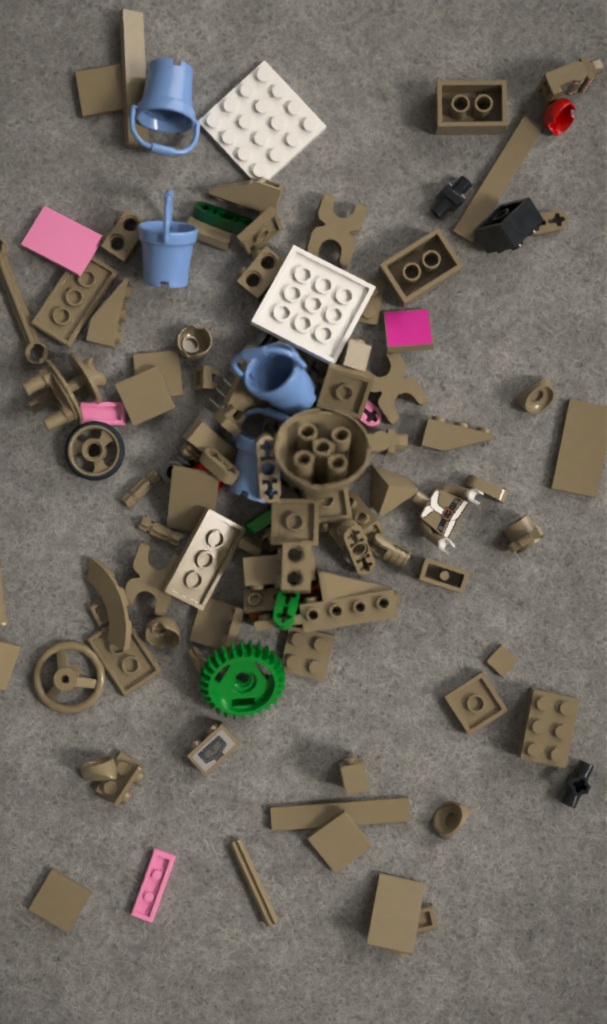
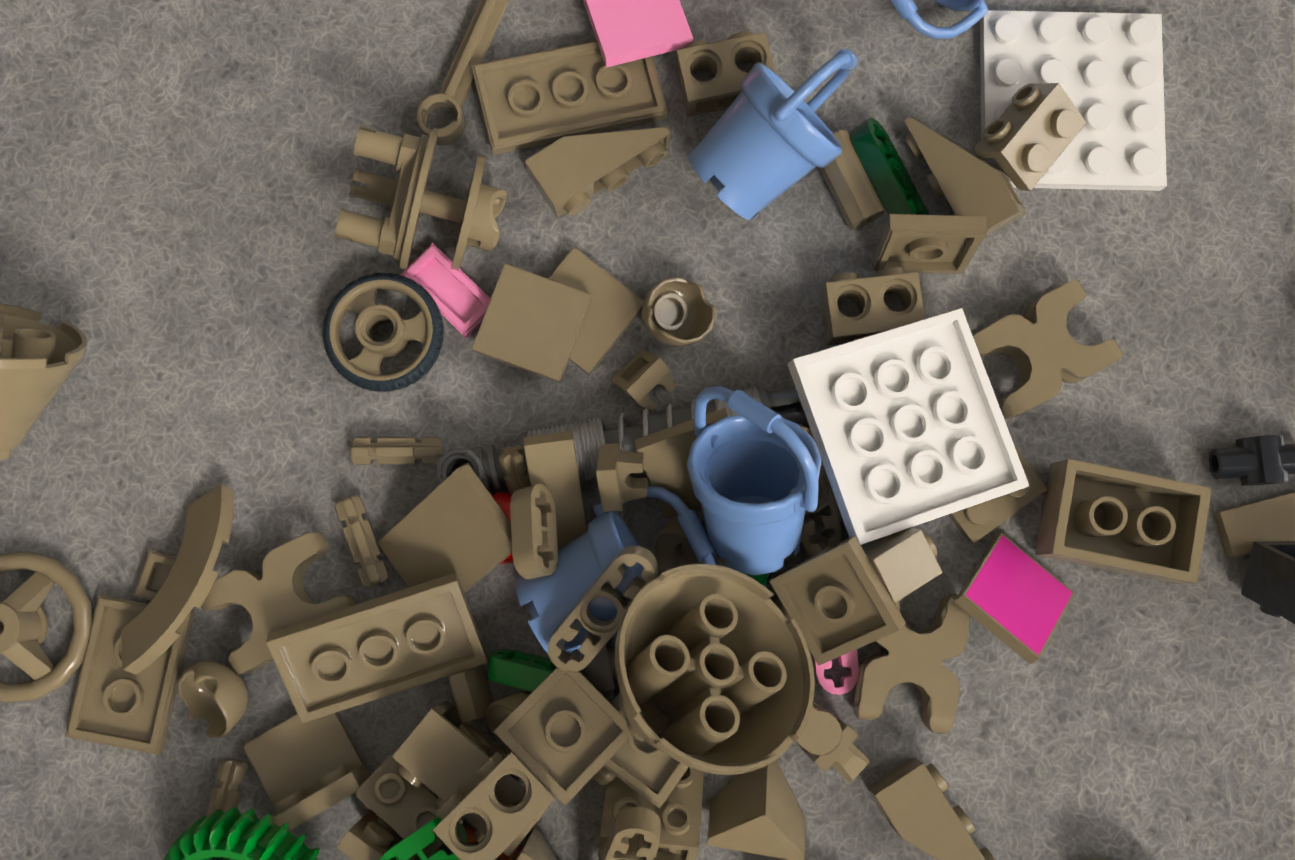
camera: 40 degrees right, 5 degrees down
(258, 155) = (1031, 133): none -> bracket

